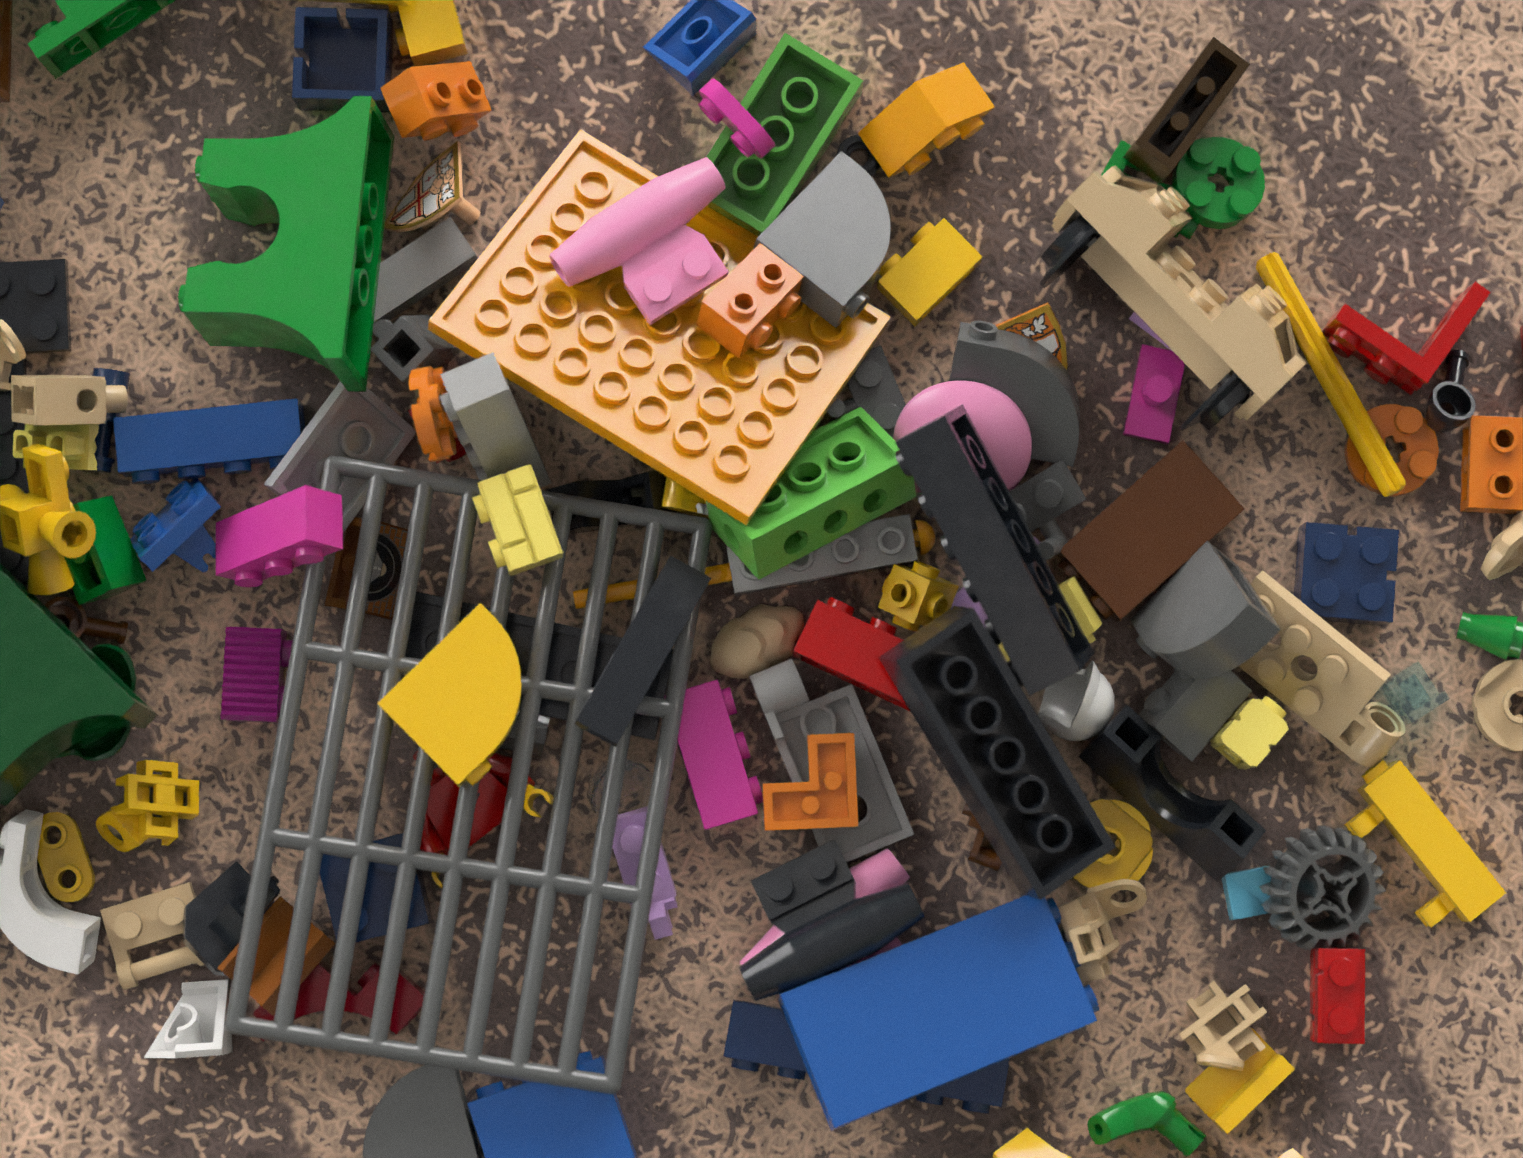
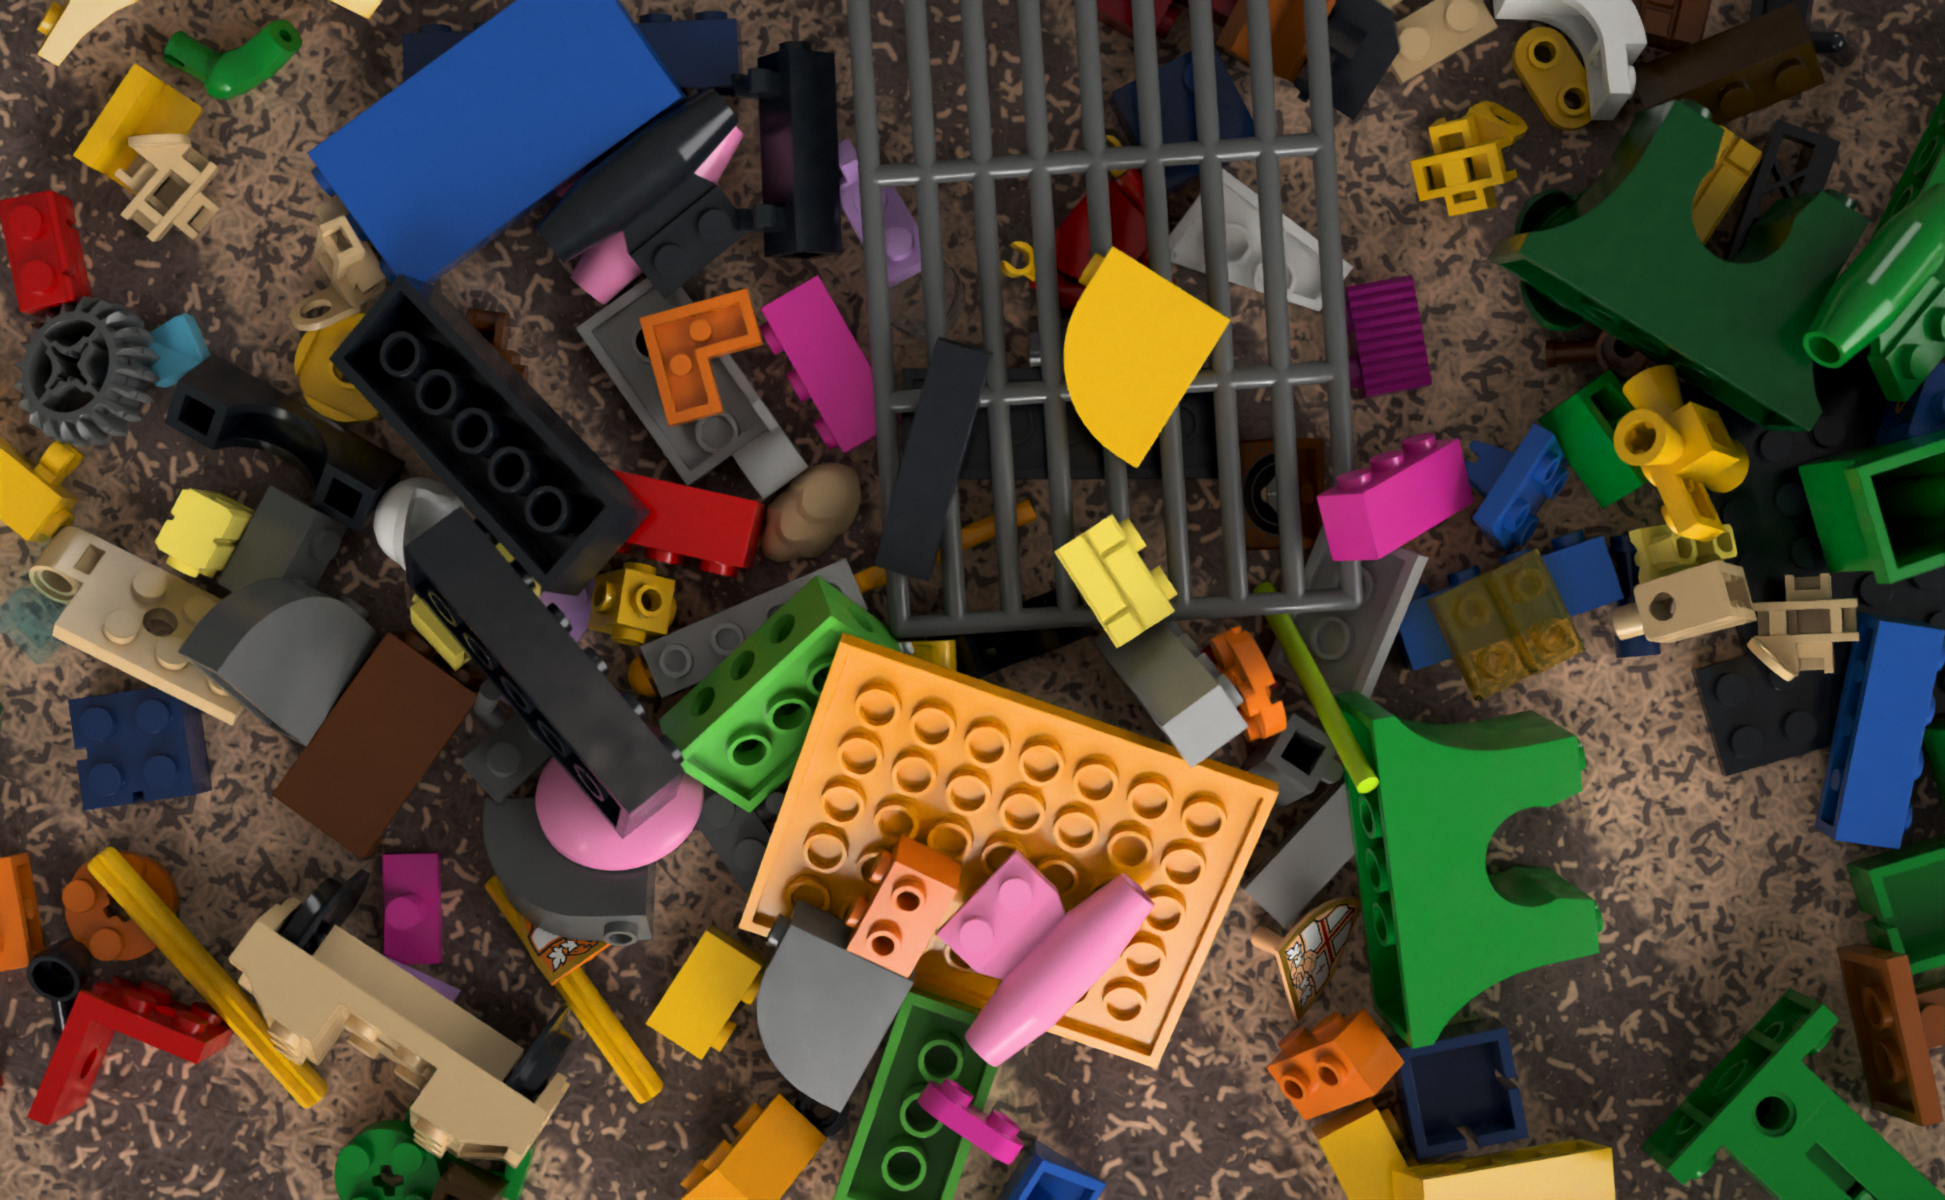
camera: 170 degrees right, 5 degrees up
(214, 417) = (1506, 624): none -> clear yellow slope
(349, 775) = (1244, 246): none -> white wing
(377, 392) = (1321, 698): none -> lime axle
(699, 936) = (797, 152): none -> black brick
(1026, 274) = (596, 1019): none -> yellow axle

